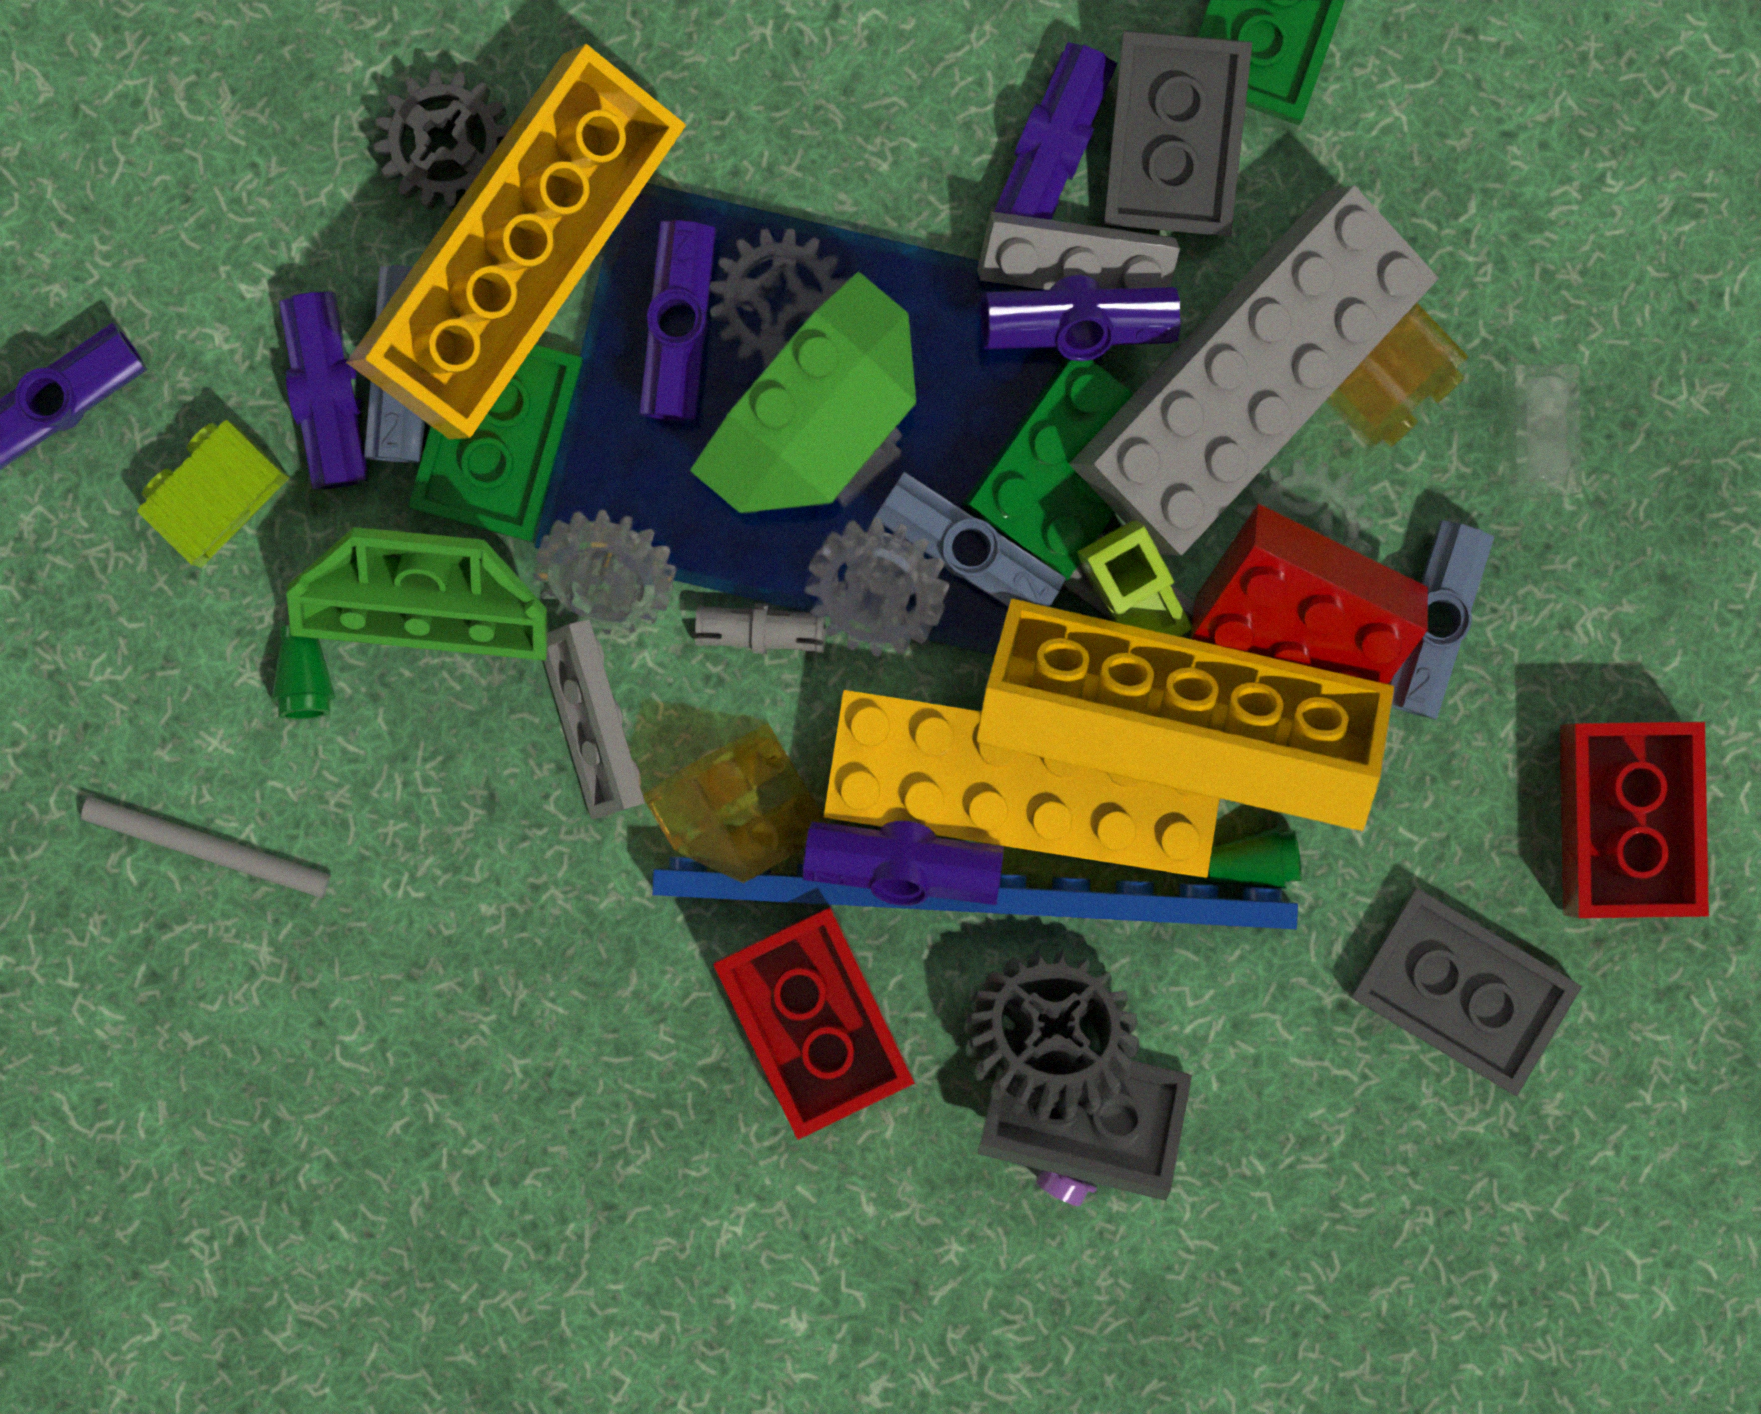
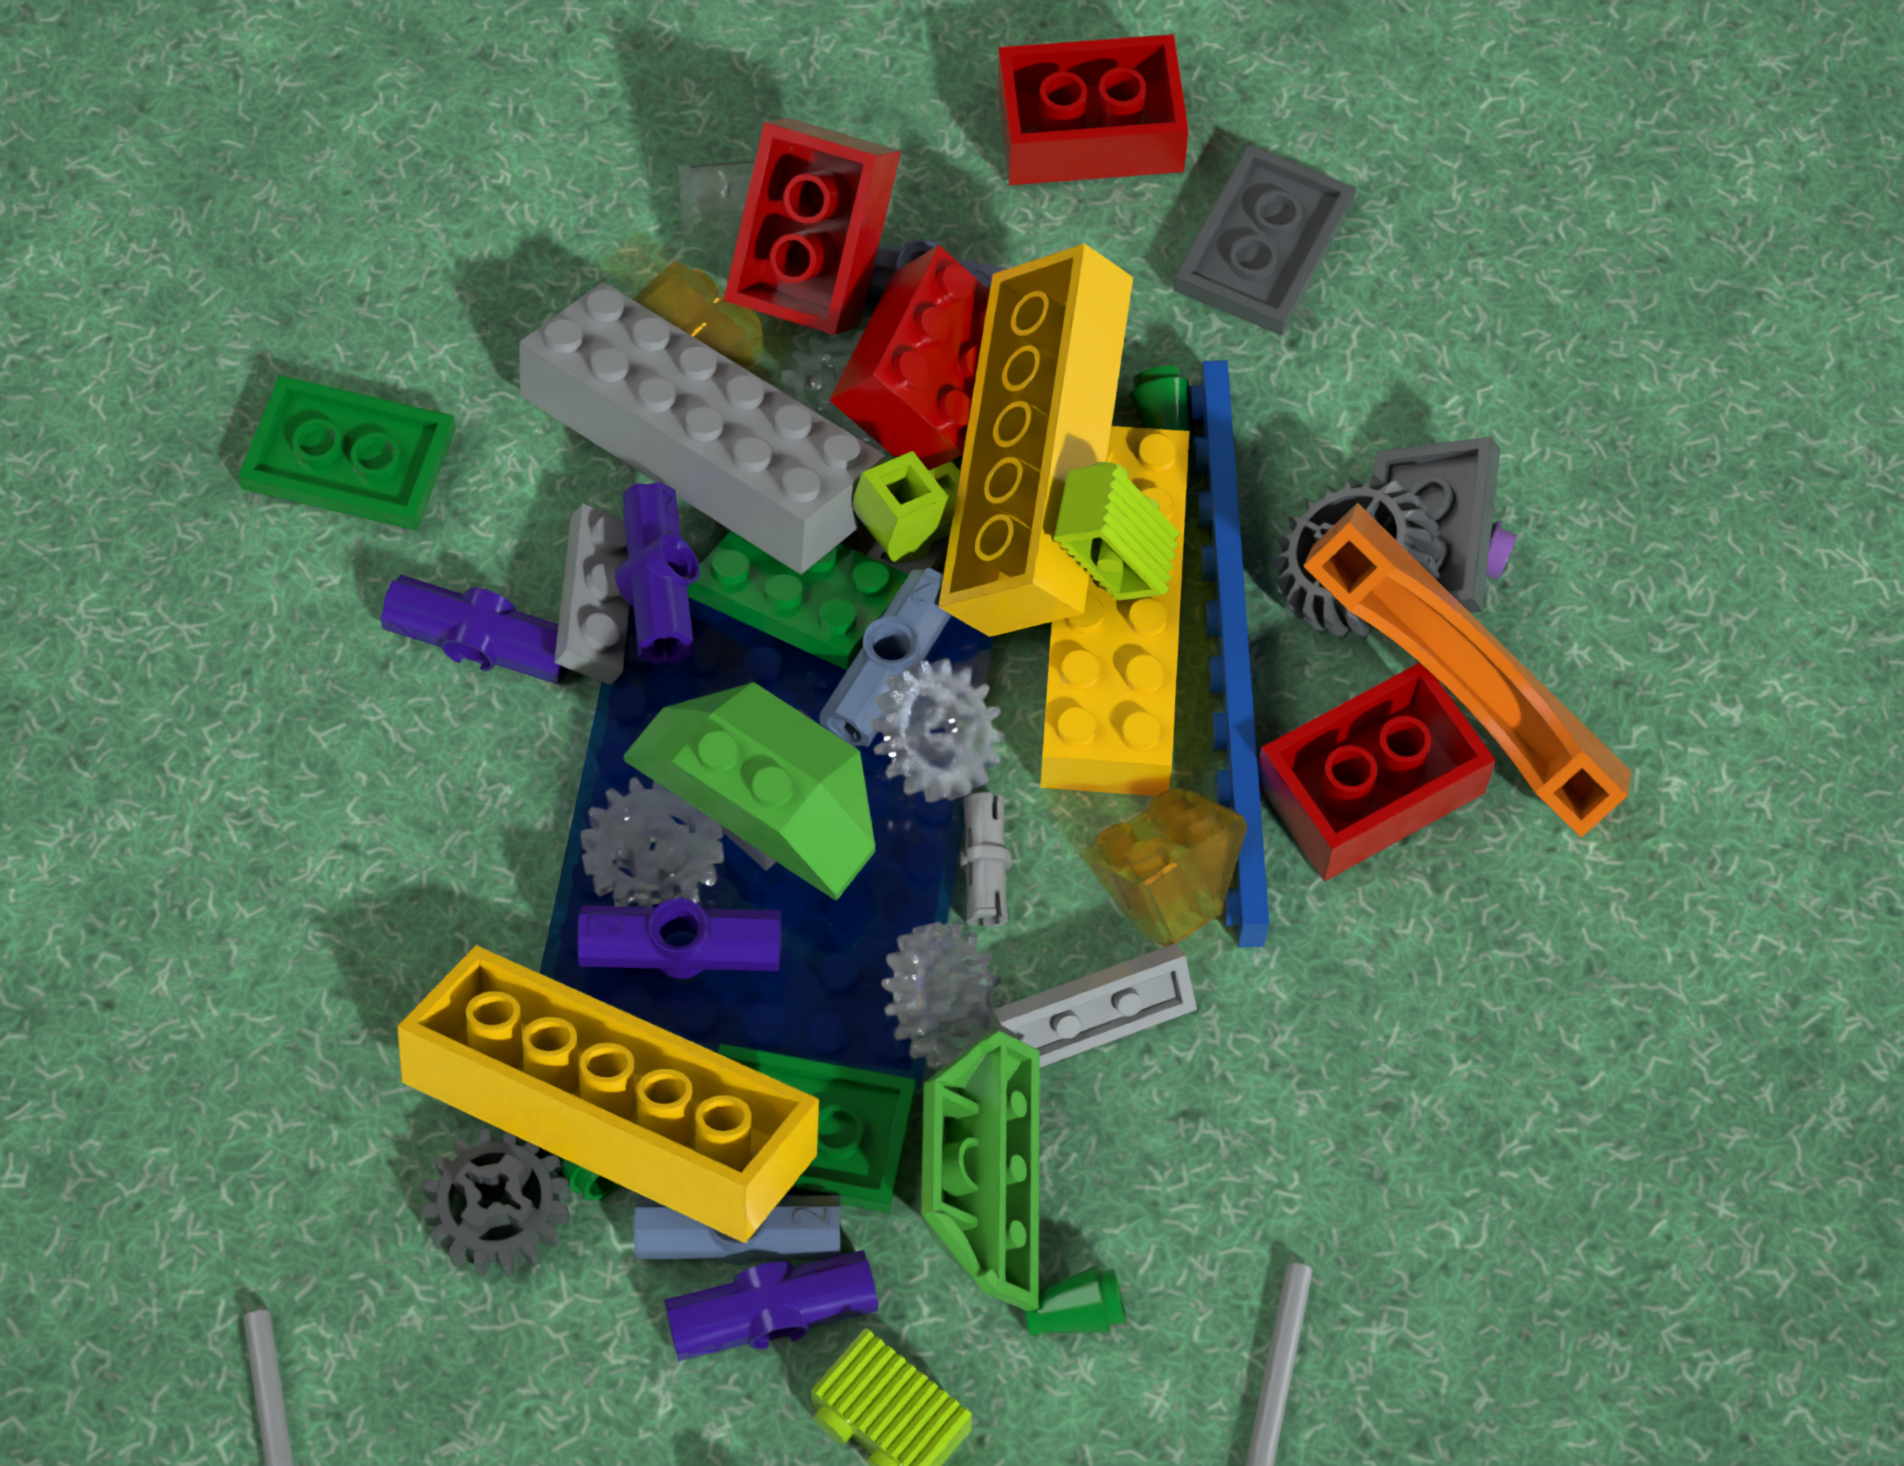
camera: 95 degrees left, 25 degrees down
(903, 863) = (1208, 687): dark purple piece -> none
(973, 1048) = (1408, 605): none -> orange arch
(1055, 781) = (1116, 532): none -> lime brick
(1177, 132) = (469, 515): dark grey plate -> none
(1472, 499) = (811, 225): none -> red brick

